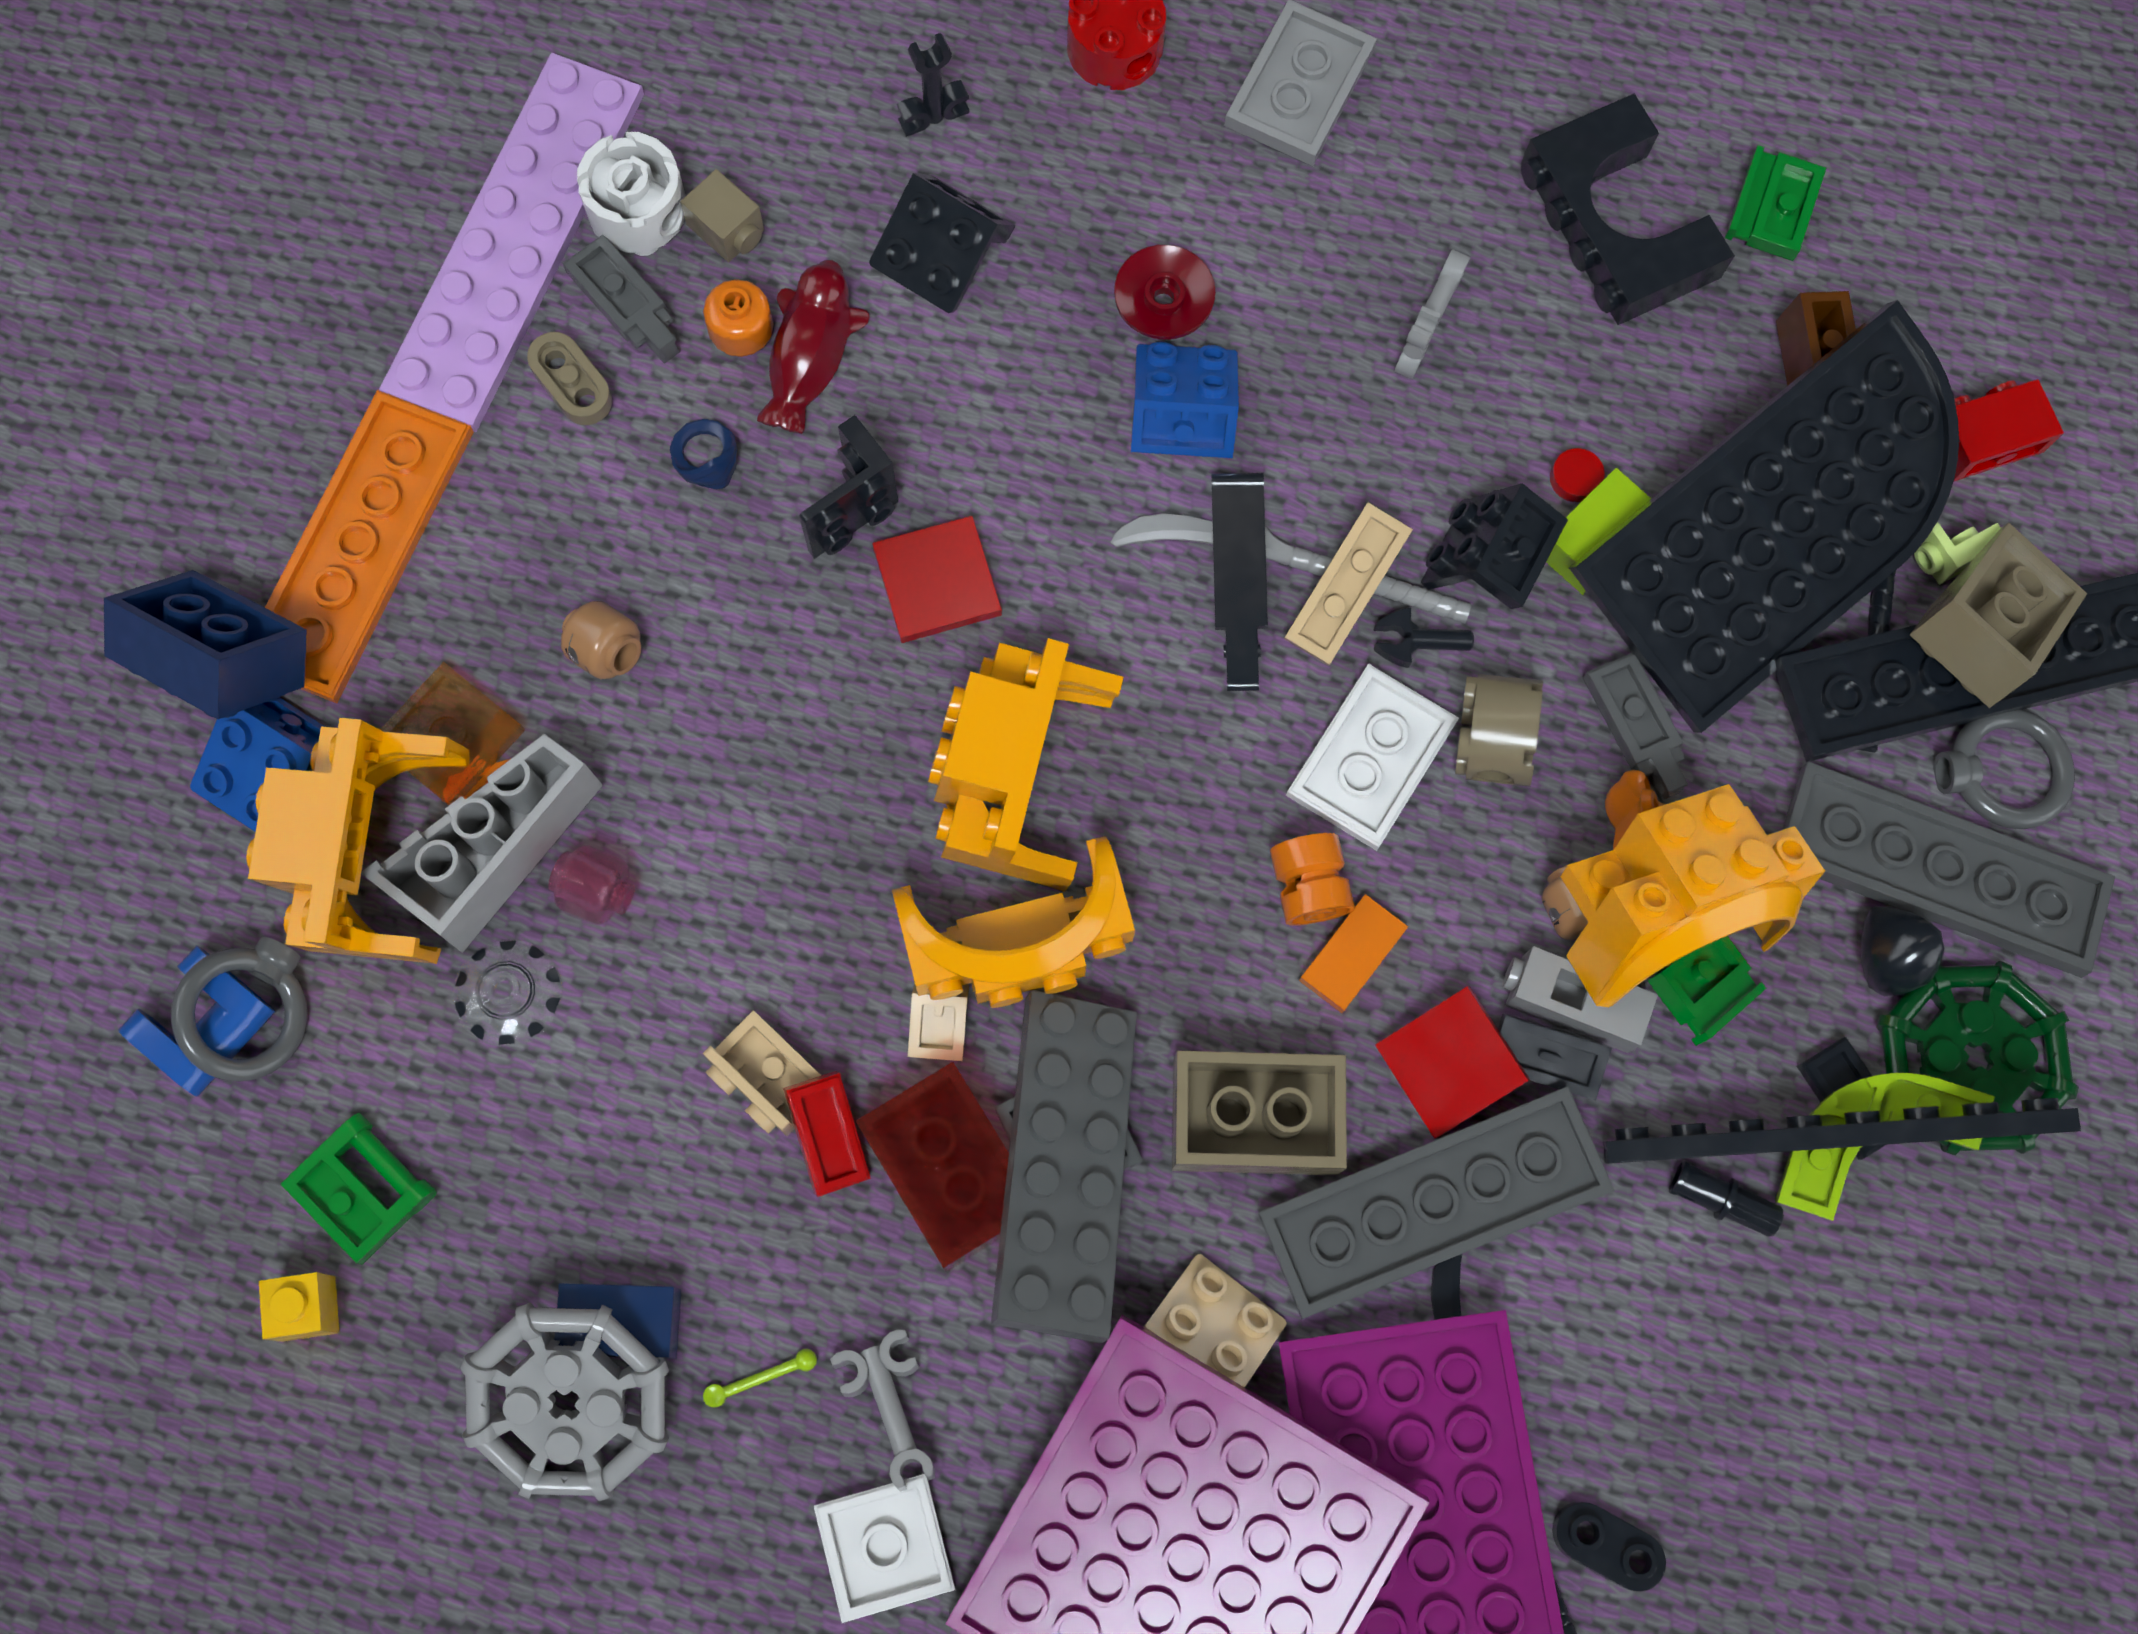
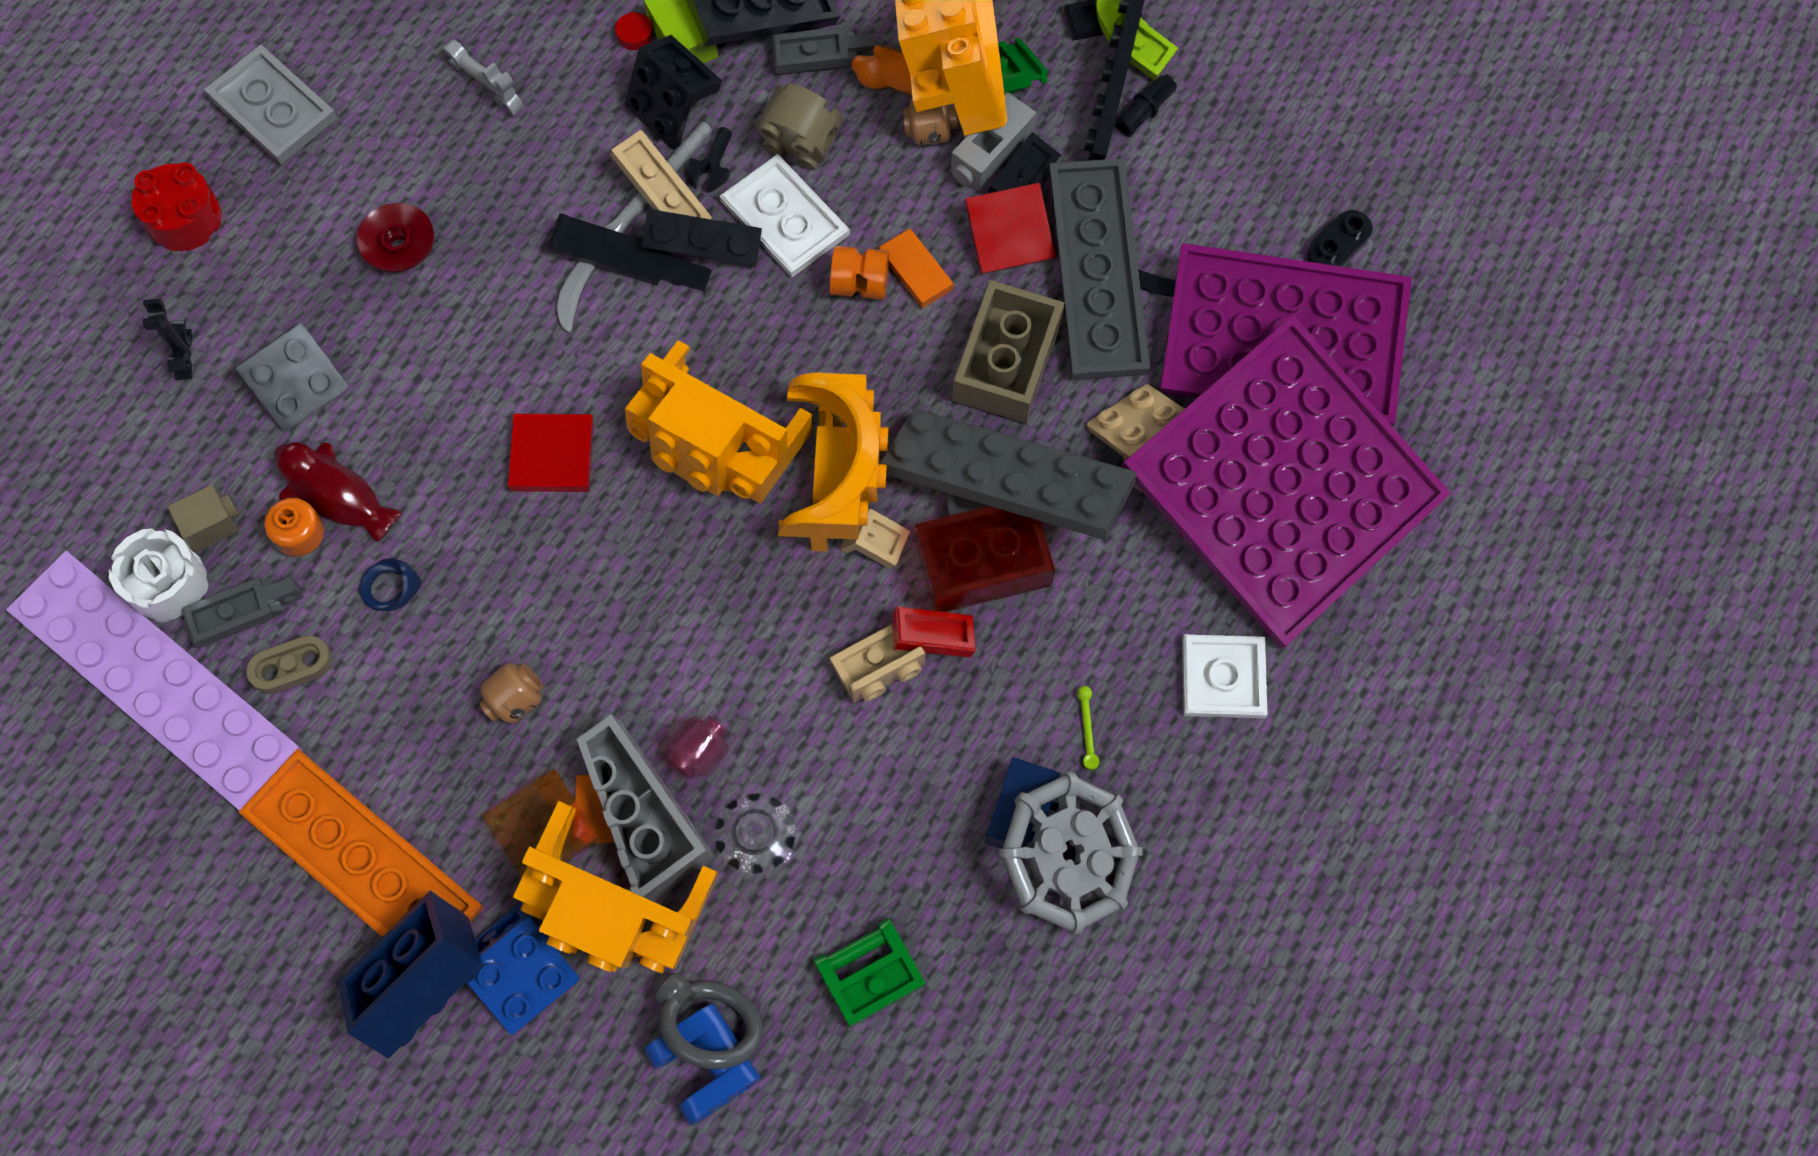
camera: 70 degrees left, 5 degrees down
(298, 1307) = (946, 1031): yellow brick -> none
(862, 499) = (456, 464): black bracket -> none
(876, 1367) = (1103, 647): light grey bar -> none
(1185, 400) = (483, 246): blue bracket -> none
(1291, 660) = (701, 238): none -> black plate

